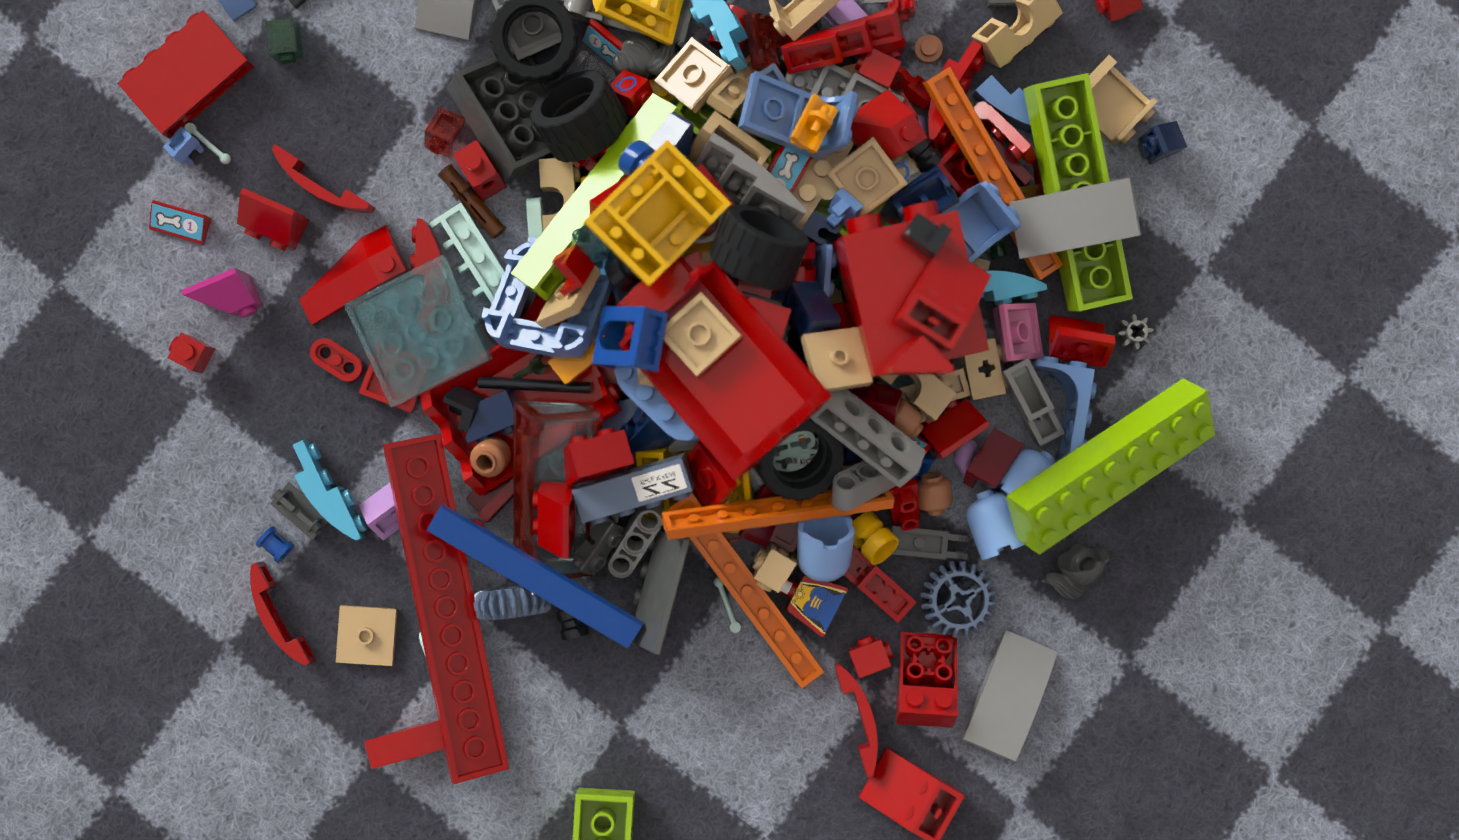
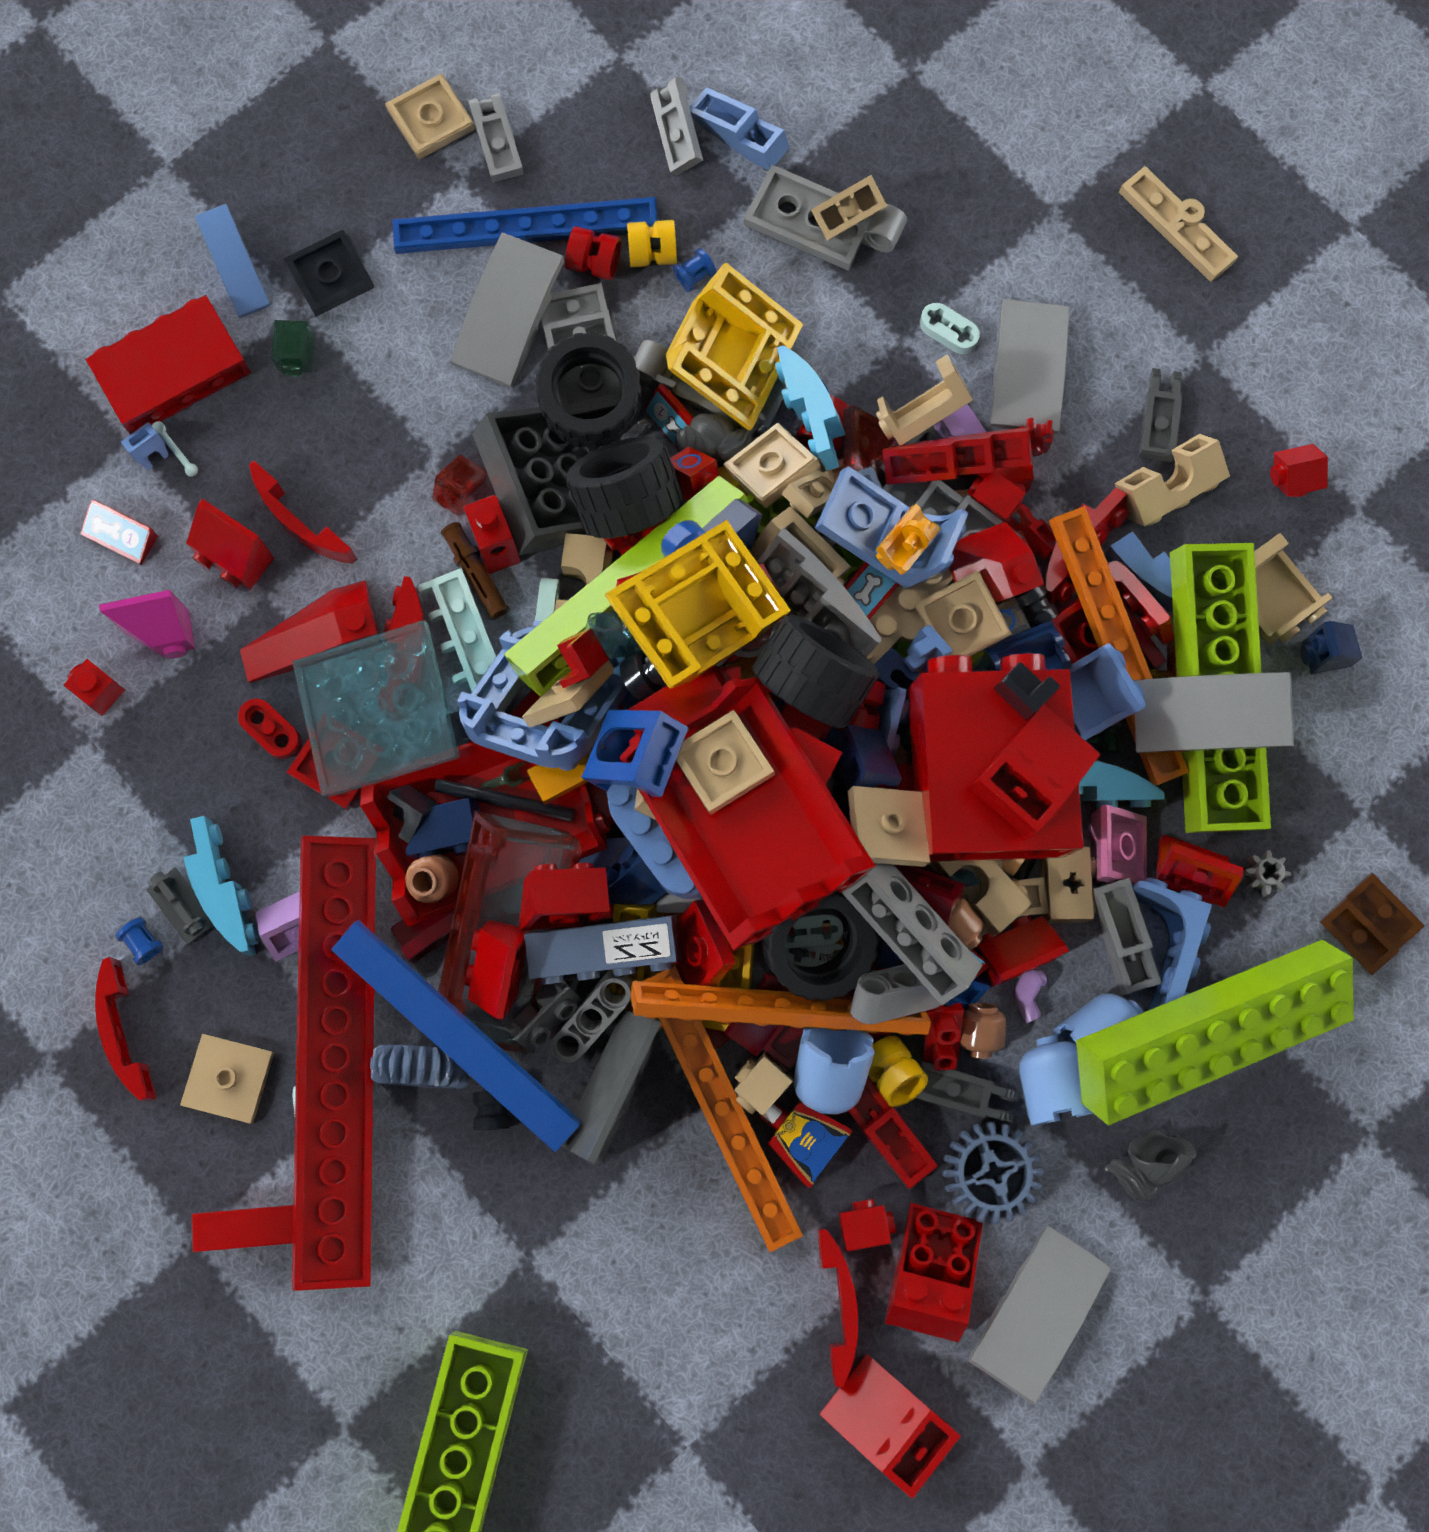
camera: 10 degrees right, 10 degrees down
(734, 626) = (698, 1155): light aqua hinge -> none
(917, 358) = (994, 839): red slope -> none
(928, 48) = (1060, 490): nougat plate -> none
(993, 460) = (1064, 998): dark red panel -> none
(1220, 355) = (1371, 923): none -> reddish brown slope

